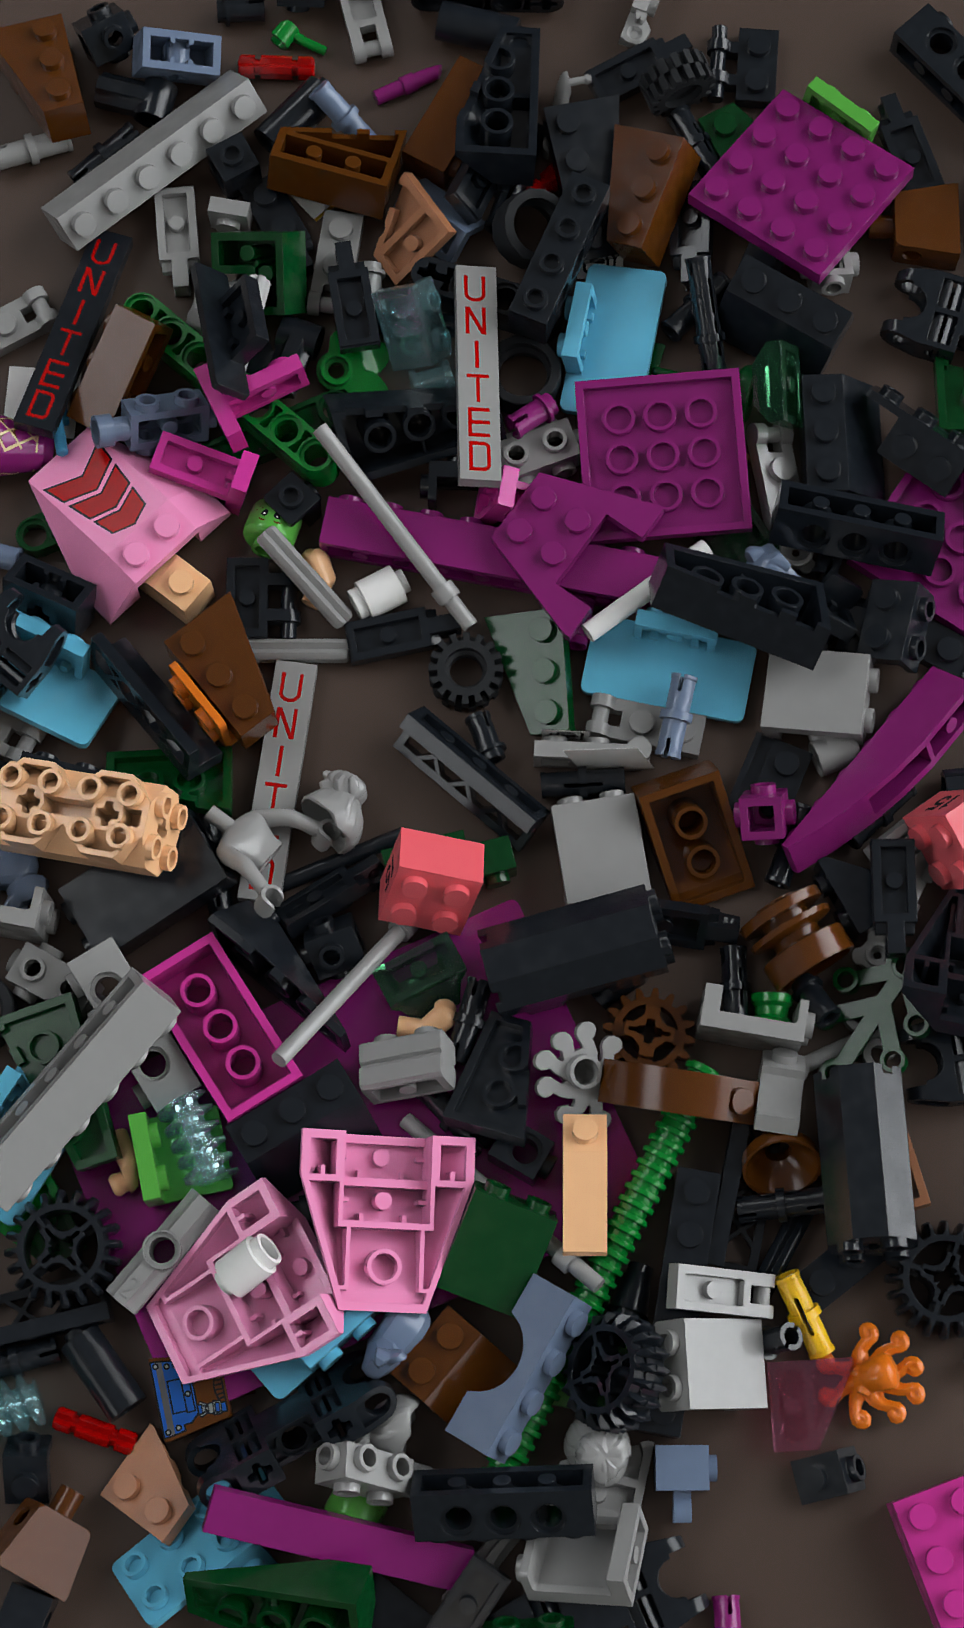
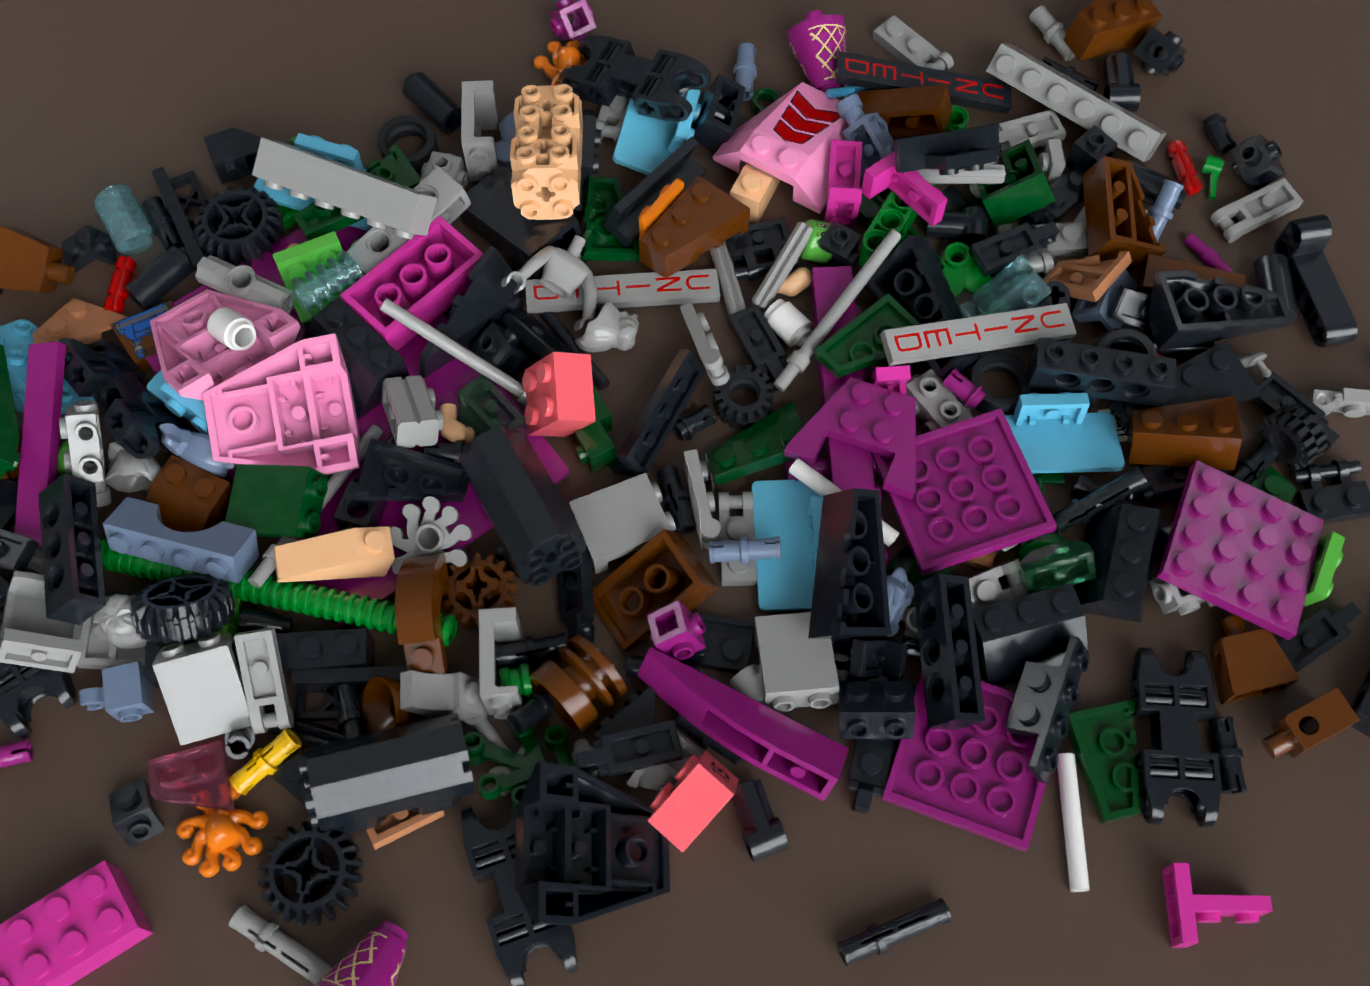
camera: 75 degrees right, 10 degrees down
(176, 56) = (1161, 92): sand blue brick -> none
(394, 696) = (705, 345): none -> light grey plate
(444, 508) = (860, 341): none -> dark green wing

